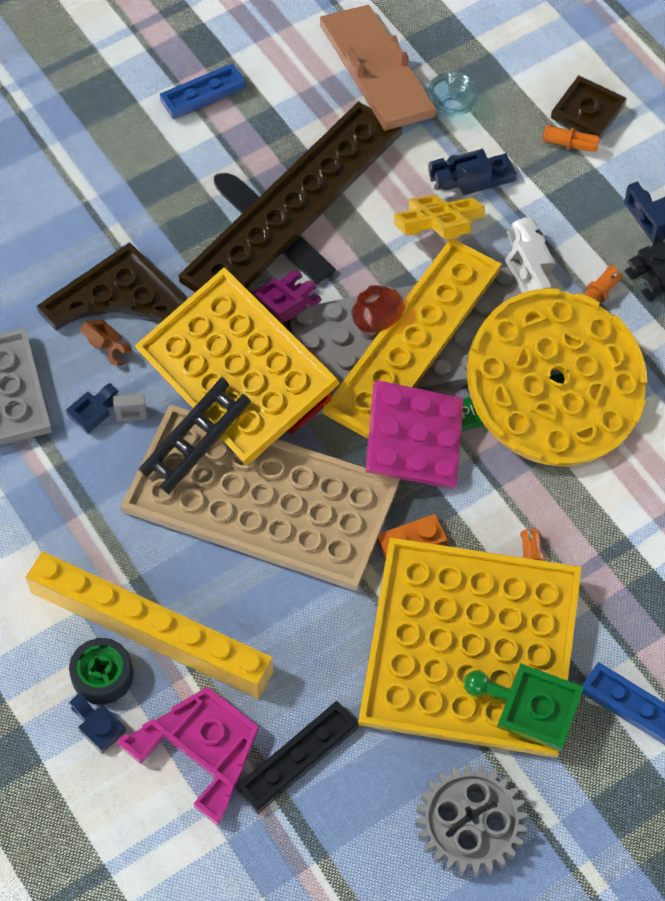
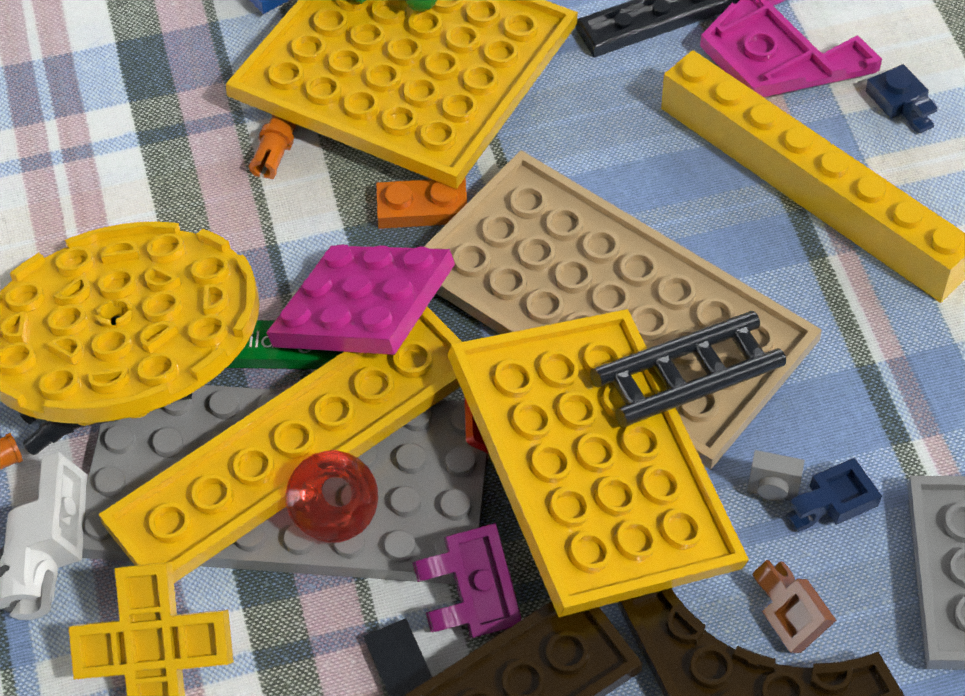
camera: 160 degrees left, 5 degrees down
(93, 685) = (890, 141): wheel -> none

